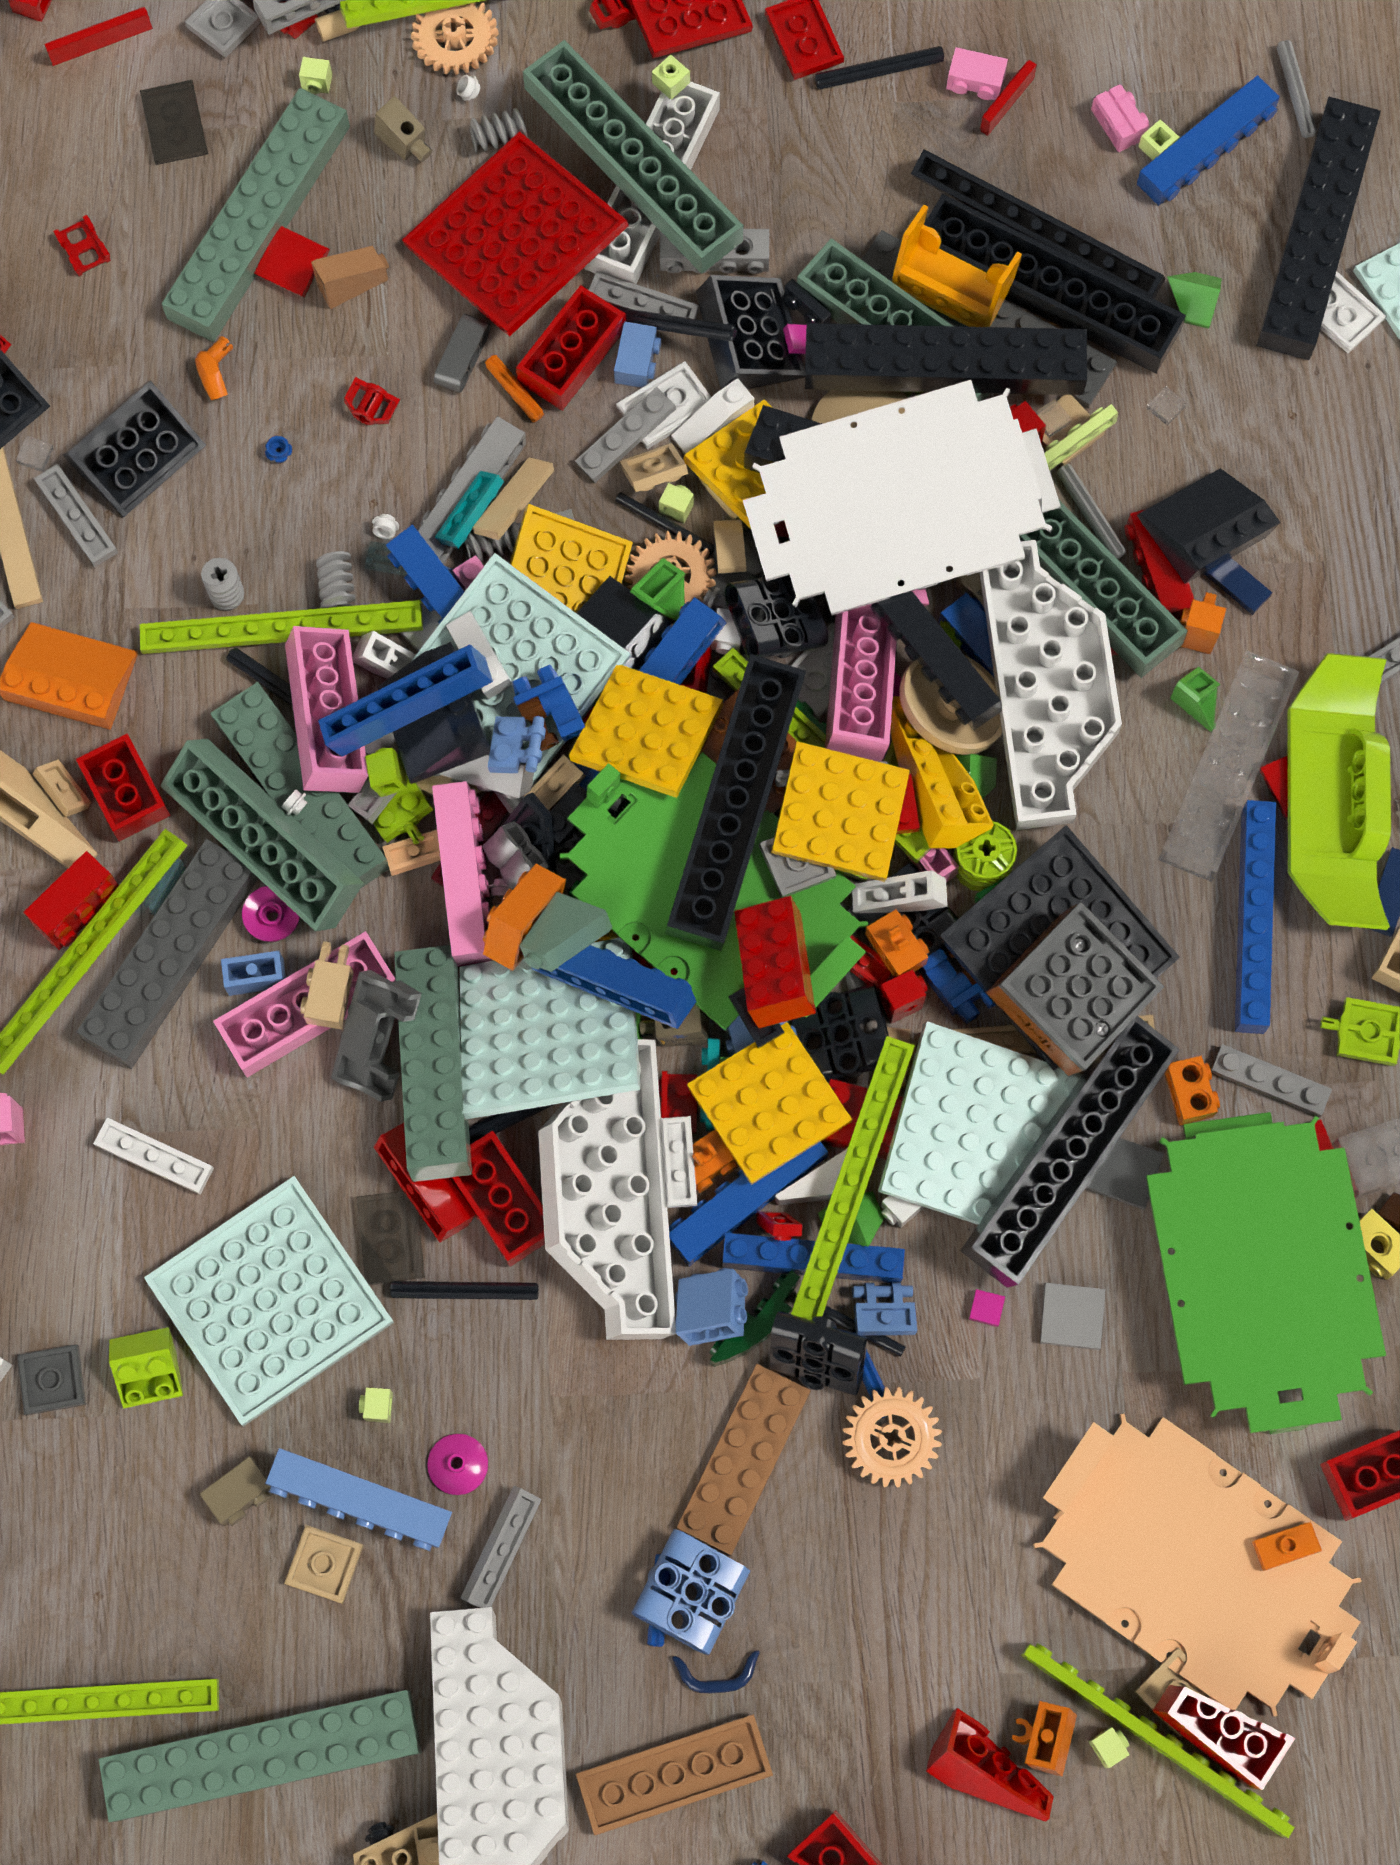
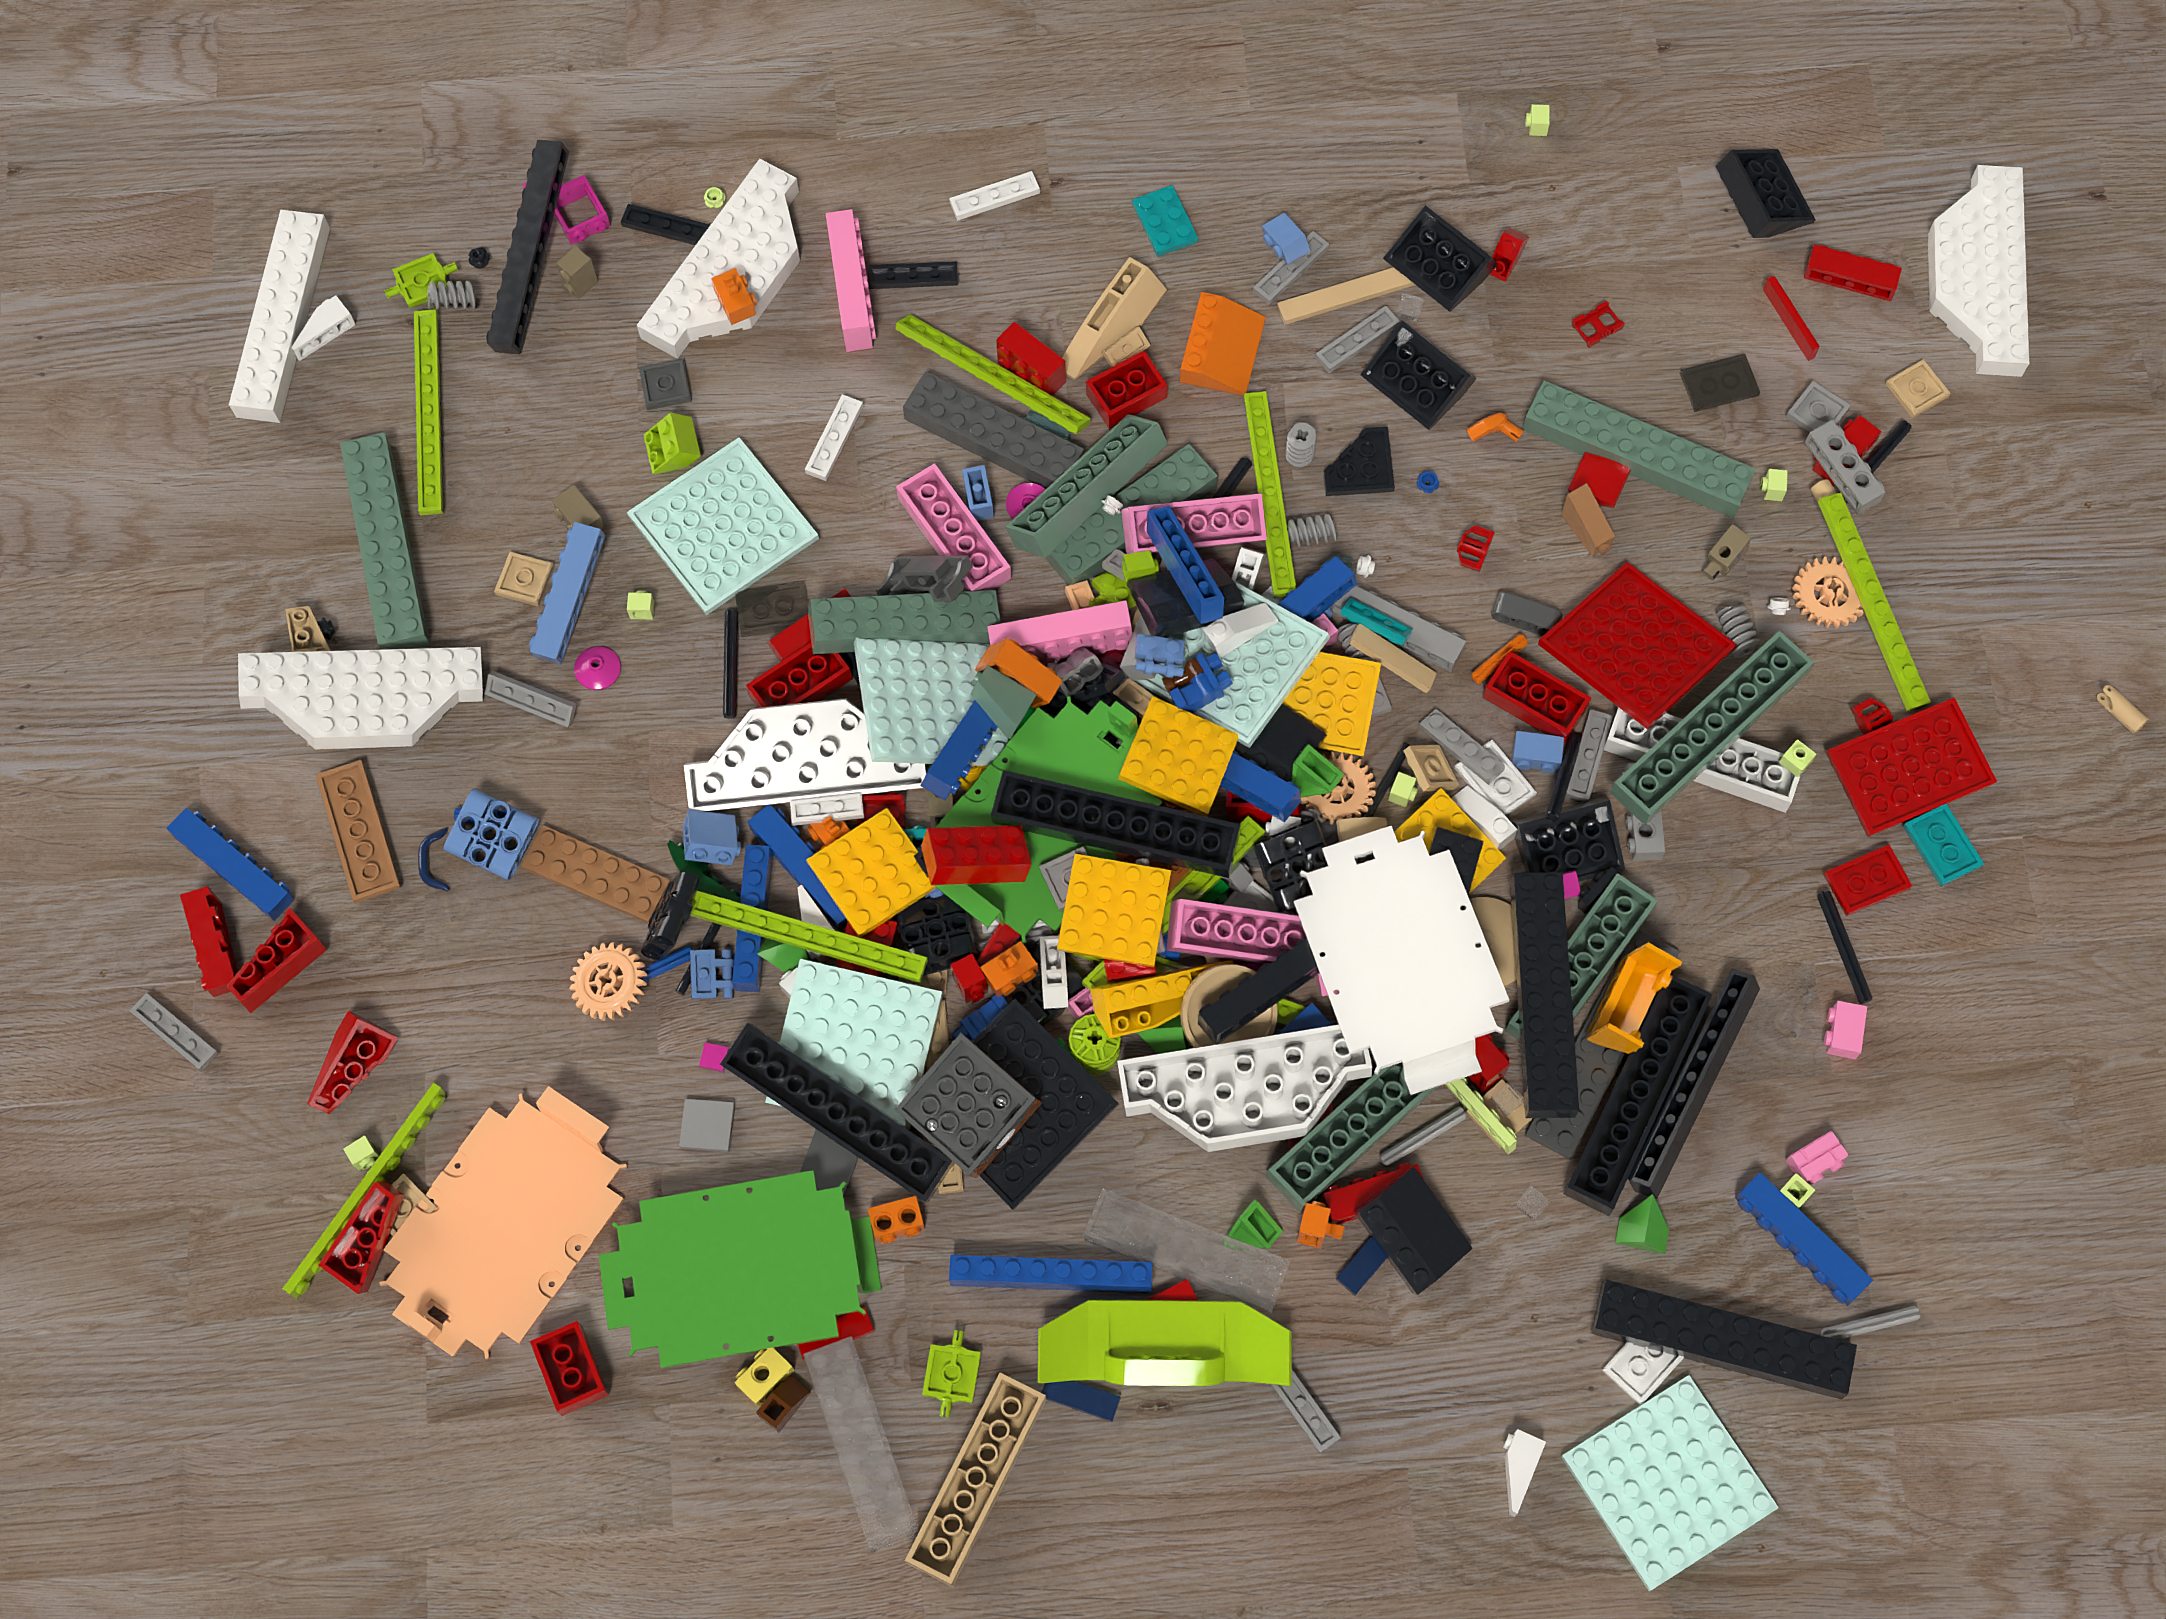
camera: 90 degrees right, 5 degrees down
(251, 520) = (1362, 466): none -> black plate
(328, 989) = (957, 539): tan hinge -> none
(779, 1225) = (777, 887): red plate -> none
(1008, 97) = (1826, 1058): red tile -> none
(1048, 1738) = (369, 1104): orange brick -> none
(1271, 1080) = (908, 1289): light grey plate -> none
(1287, 1546) = (513, 1294): orange plate -> none

